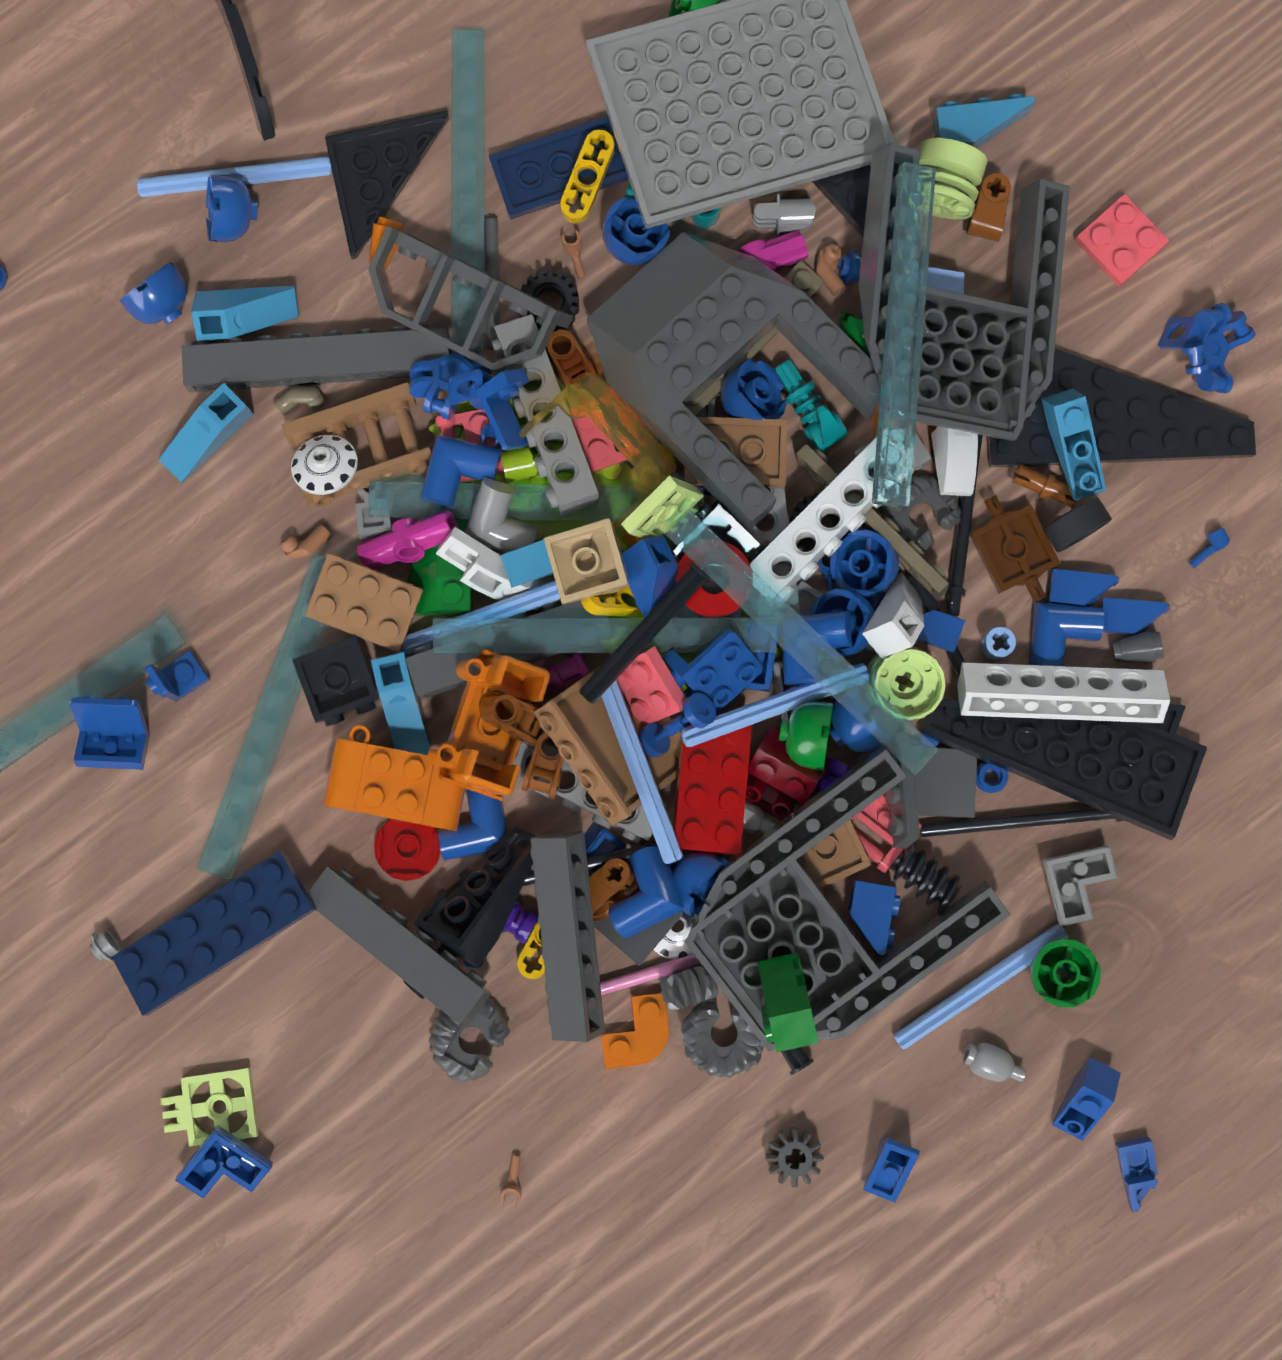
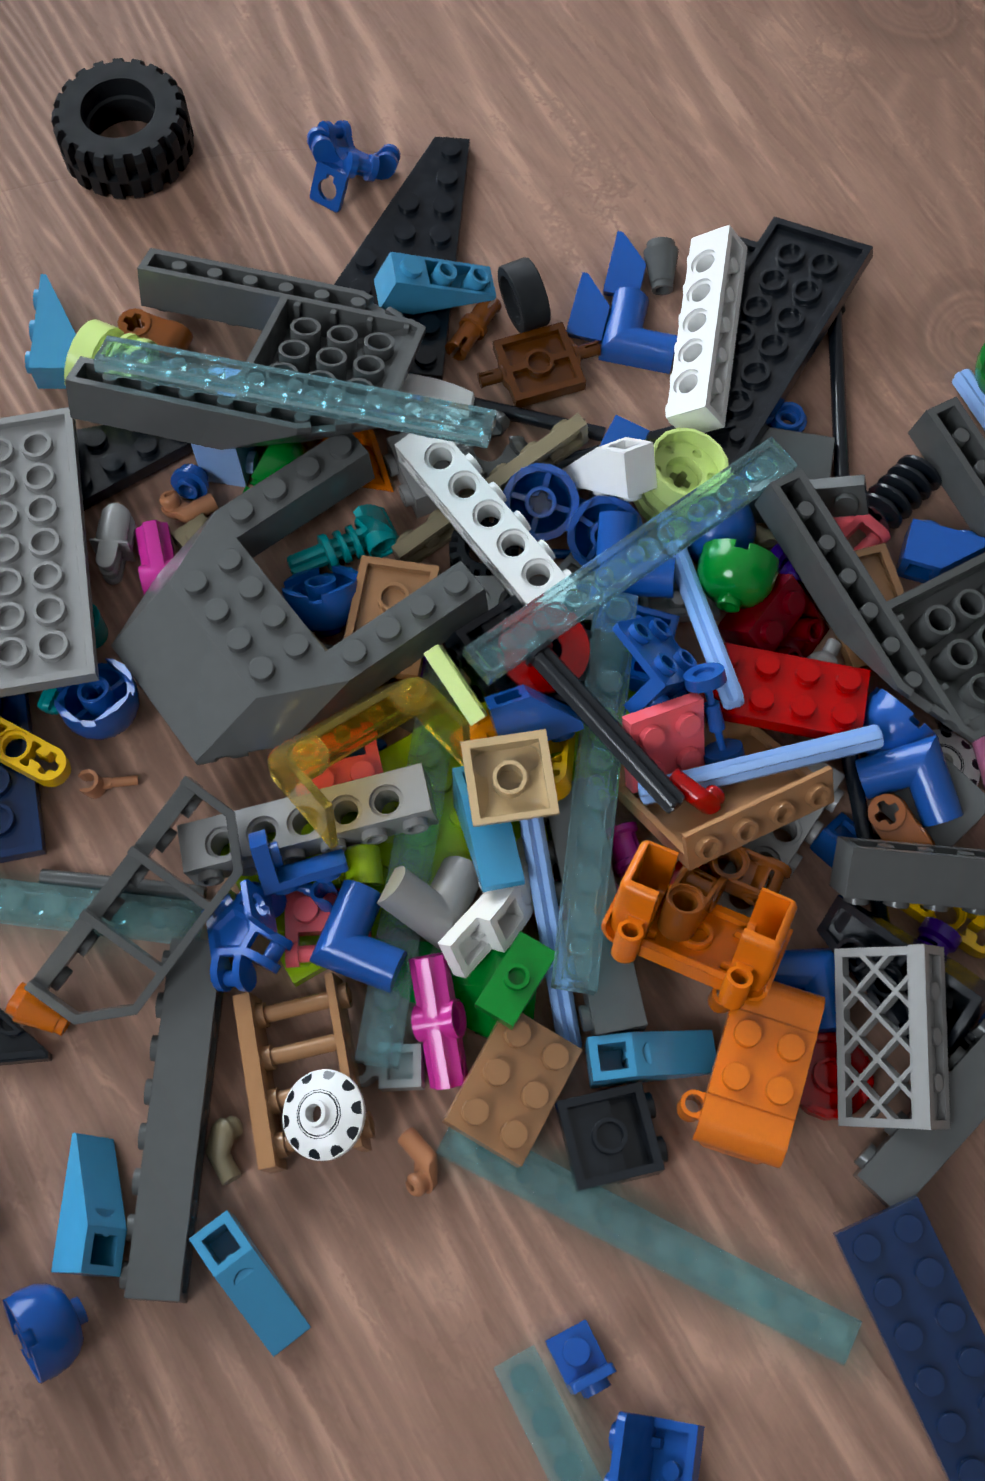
camera: 85 degrees left, 15 degrees down
(429, 904) = (926, 1037): none -> light grey fence
(438, 591) = (515, 980): none -> green plate
(556, 283) = (142, 802): black tyre -> none
(571, 365) = (243, 791): dark orange piece -> none
(600, 712) = (705, 800): none -> red arm
(1008, 644) = (643, 390): light blue bush -> none
(1069, 876) = (911, 360): light grey brick -> none
(1122, 240) = (217, 226): coral plate -> none
(1218, 540) = (556, 183): blue hand -> none
(1233, 103) = (114, 95): none -> black tyre

